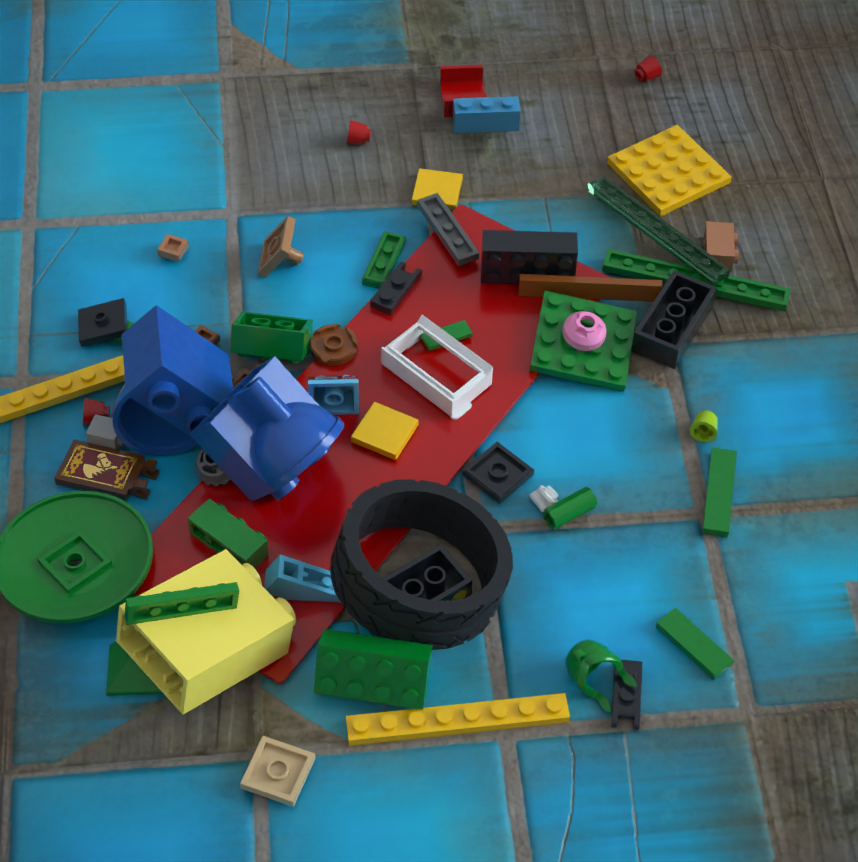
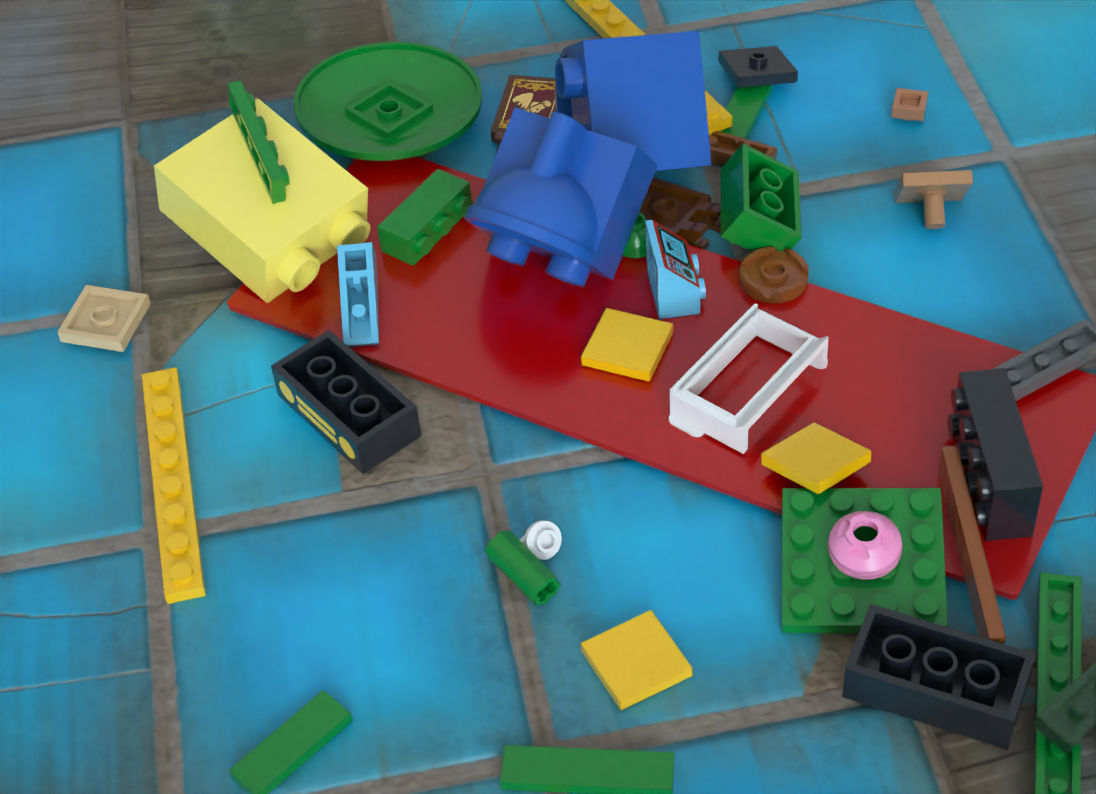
camera: 90 degrees right, 5 degrees down
(372, 669) = (221, 368): green brick -> none
(383, 259) = (970, 314): green tile -> none
(394, 289) = (903, 324): black hinge -> none
(440, 512) = (361, 289): black tyre -> none
(457, 330) = (825, 391): green piece -> none
(498, 472) = (579, 480): black plate -> none
(510, 343) = (816, 457): none -> yellow tile
(584, 659) = (241, 596): green hair -> none
(626, 698) = (206, 664): black hinge -> none
(641, 460) = (636, 660): none -> yellow tile
(704, 426) = (718, 738): lime hat -> none

